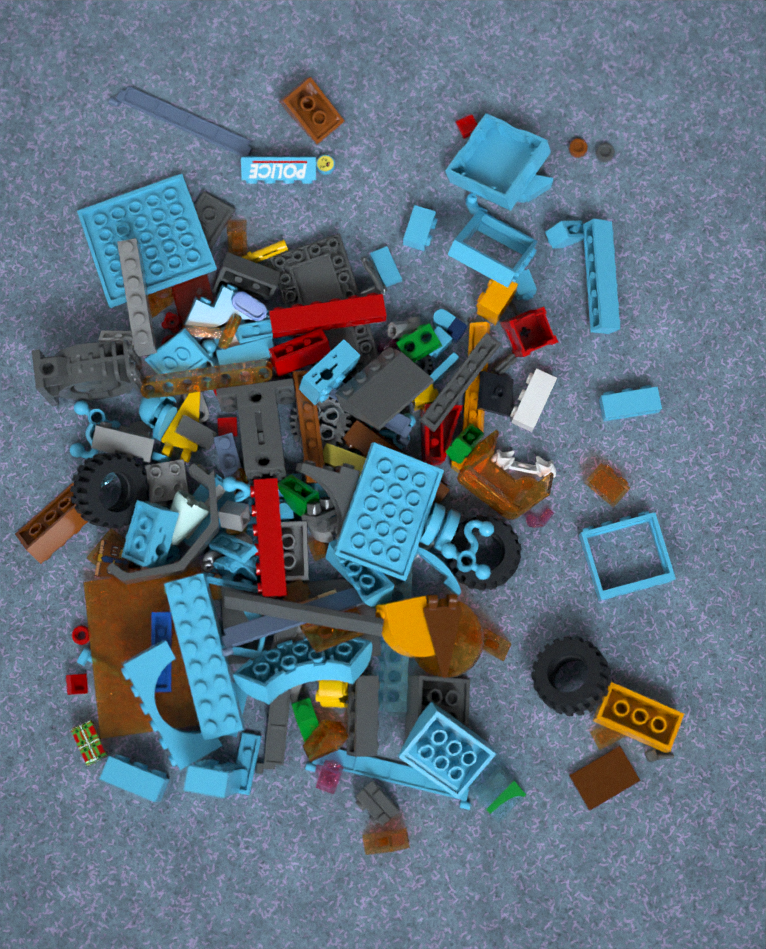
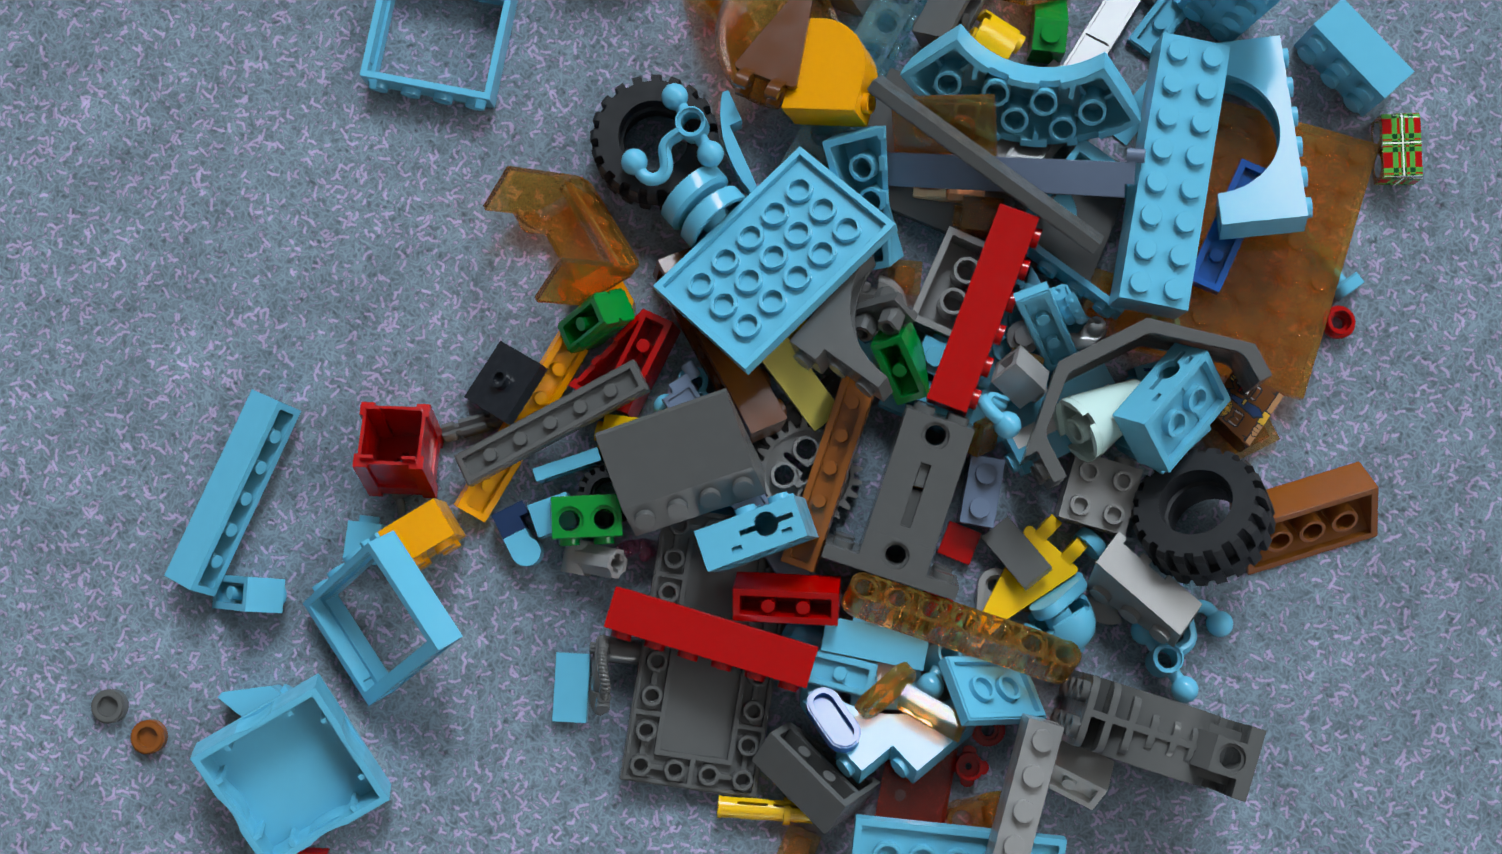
camera: 145 degrees left, 5 degrees up
(77, 684) = (1379, 247): red plate -> none
(419, 228) = (482, 724): medium azure brick -> none
(472, 204) = (375, 721): medium azure arm -> none
(507, 462) = (497, 231): white piece -> none
(533, 399) = (450, 346): white brick -> none
(539, 521) = (542, 155): clear pink arm -> none
(607, 484) = (408, 157): clear orange brick -> none
(630, 403) = (302, 266): medium azure brick -> none

